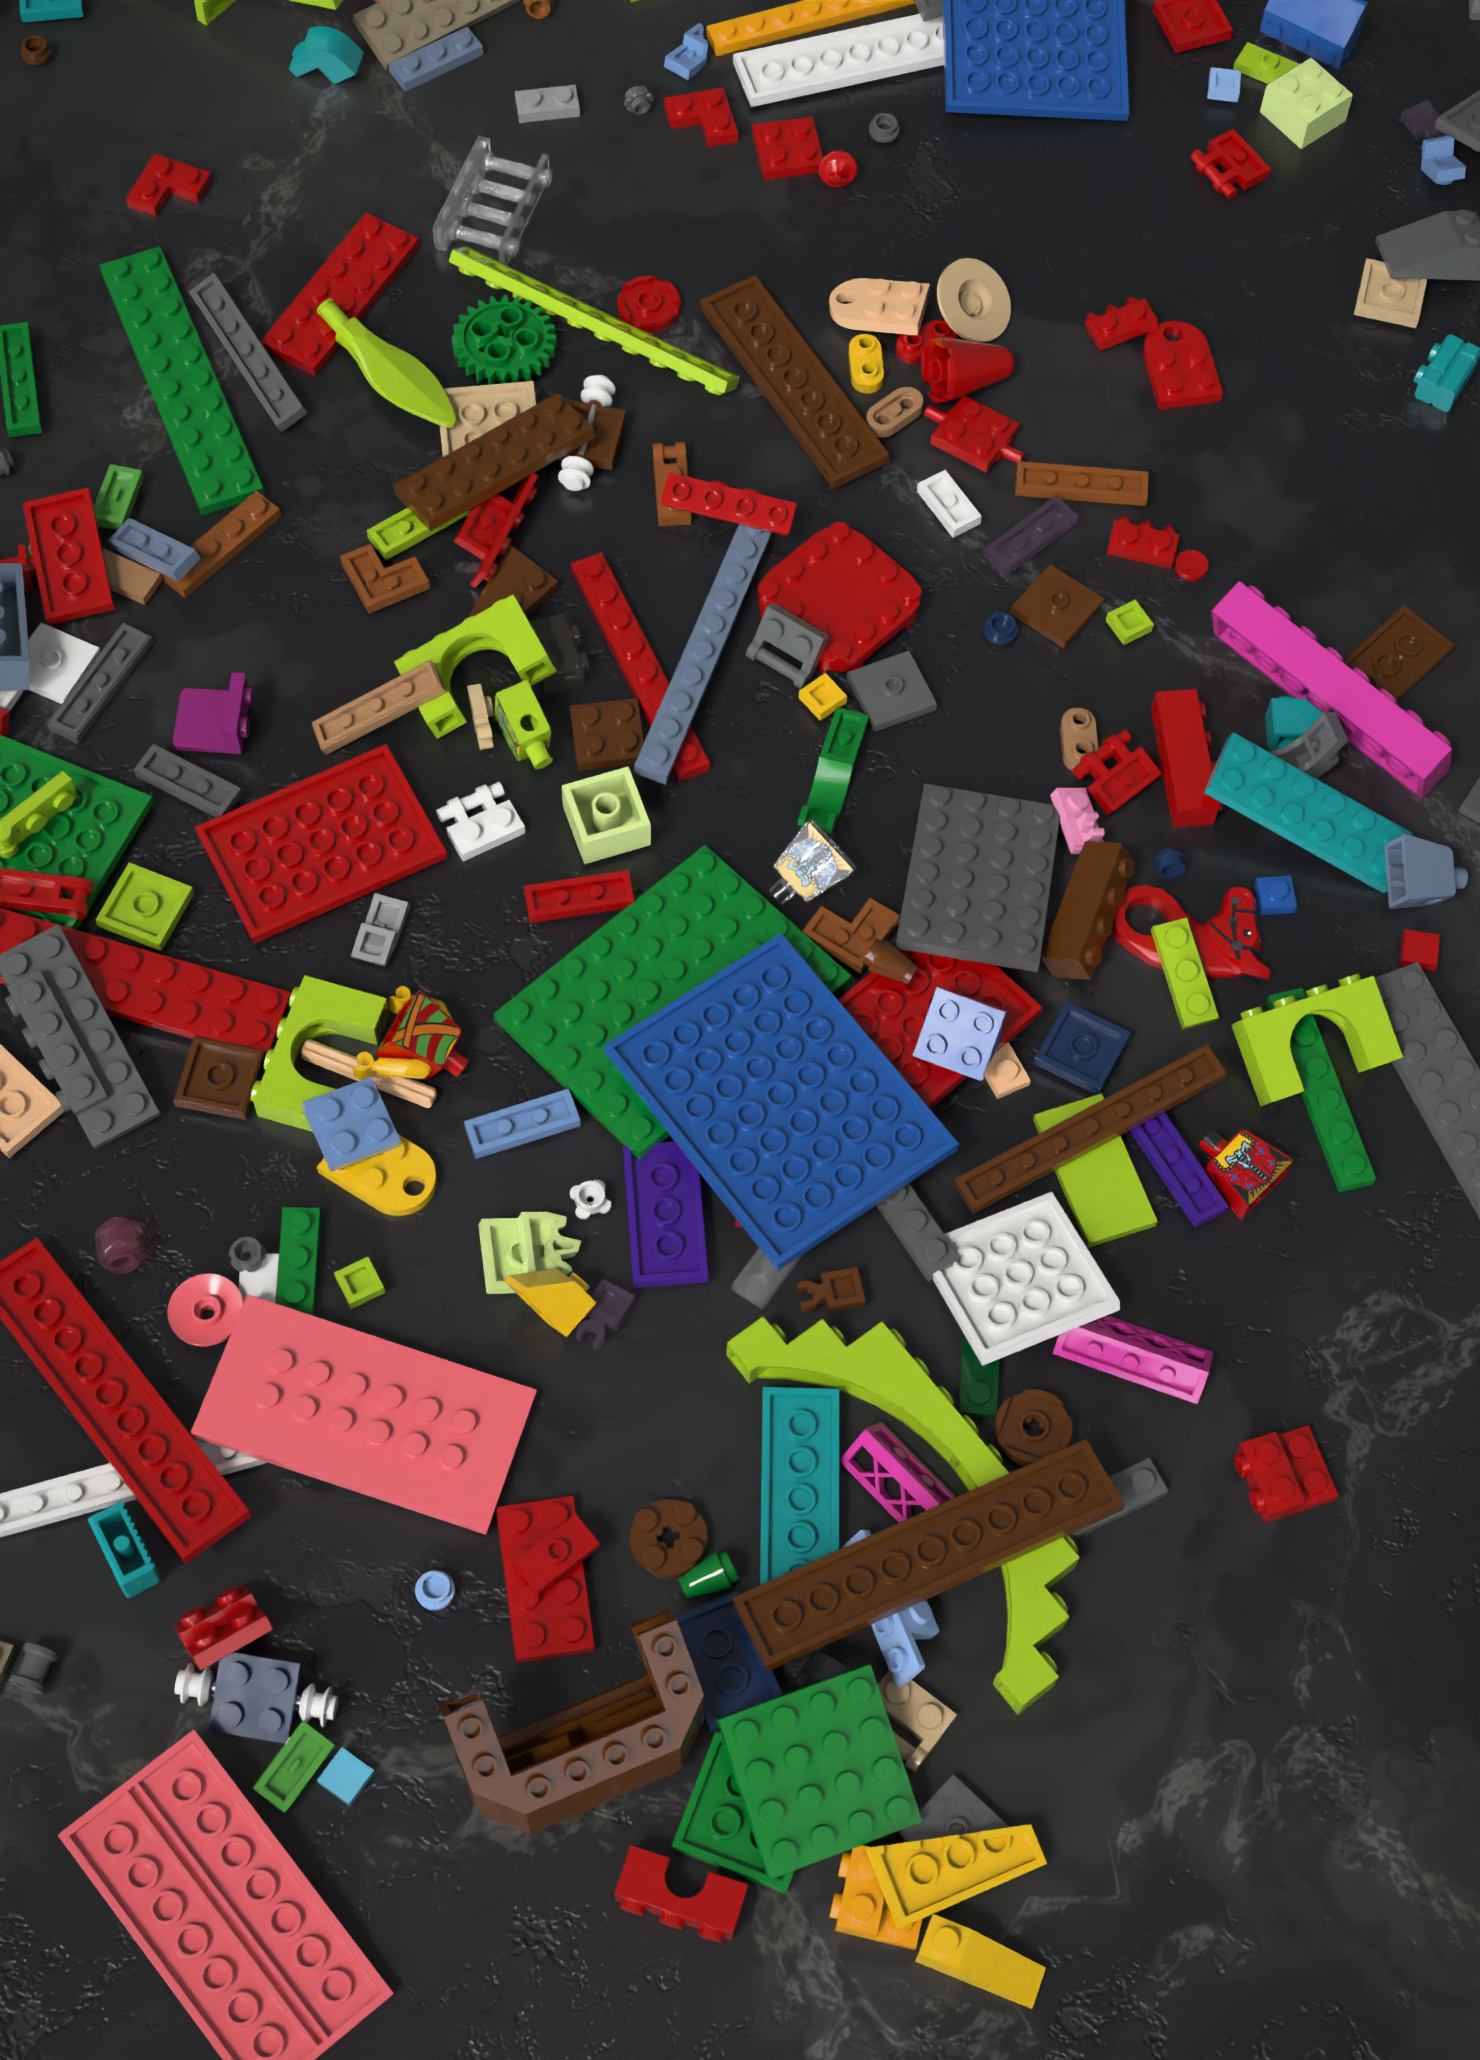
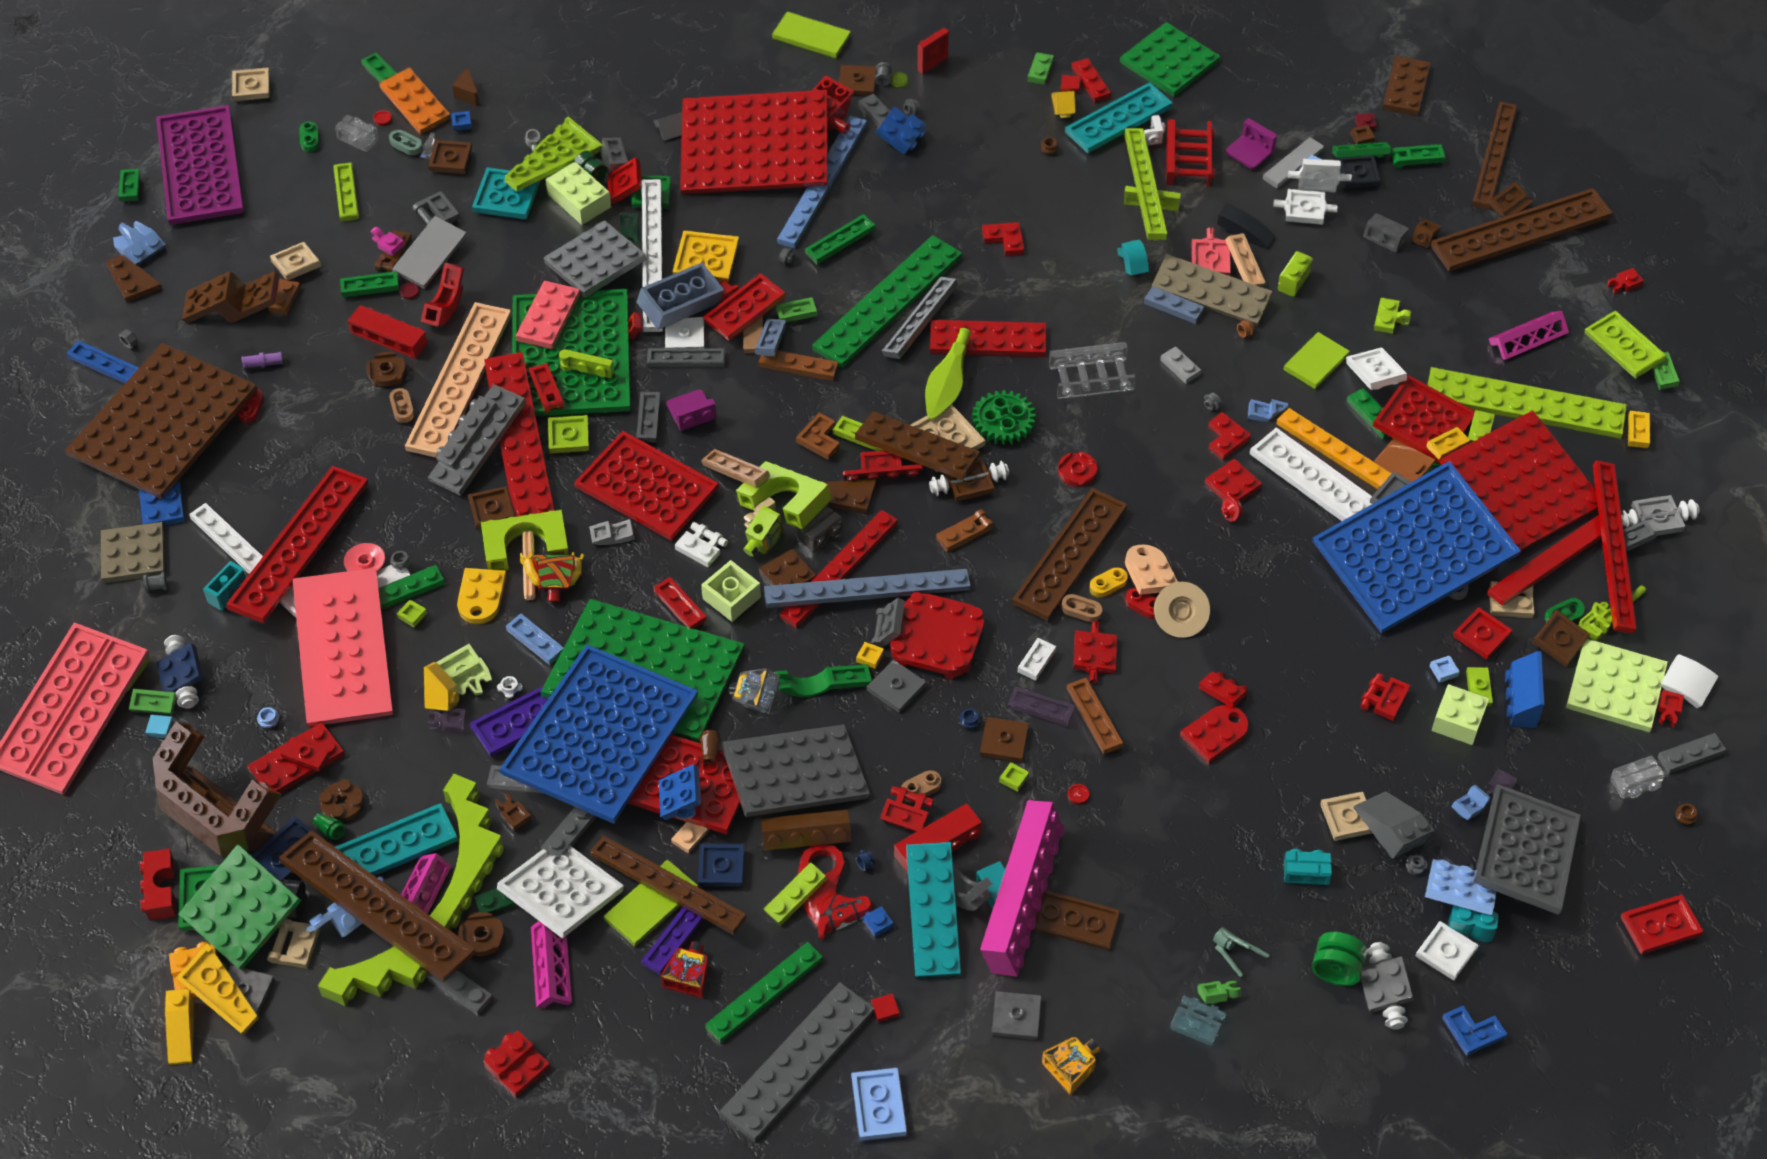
camera: 65 degrees right, 10 degrees down
(120, 1245) = (380, 511): clear pink head -> none
(222, 1626) = (204, 638): red plate -> none
(351, 1124) = (488, 565): medium blue plate -> none
(604, 325) = (1045, 450): lime plate -> none
(728, 504) = (961, 557): red bracket -> none
(852, 940) = (724, 724): dark orange plate -> none
(884, 128) = (1280, 519): dark grey plate -> none
(962, 367) = (1132, 625): red cone -> none
(1077, 817) = (866, 805): bright pink plate -> none
(1143, 542) = (1077, 764): red plate -> none
(1353, 1007) = (771, 944): lime arch -> none
(1420, 872) = (929, 984): sand blue torso -> none

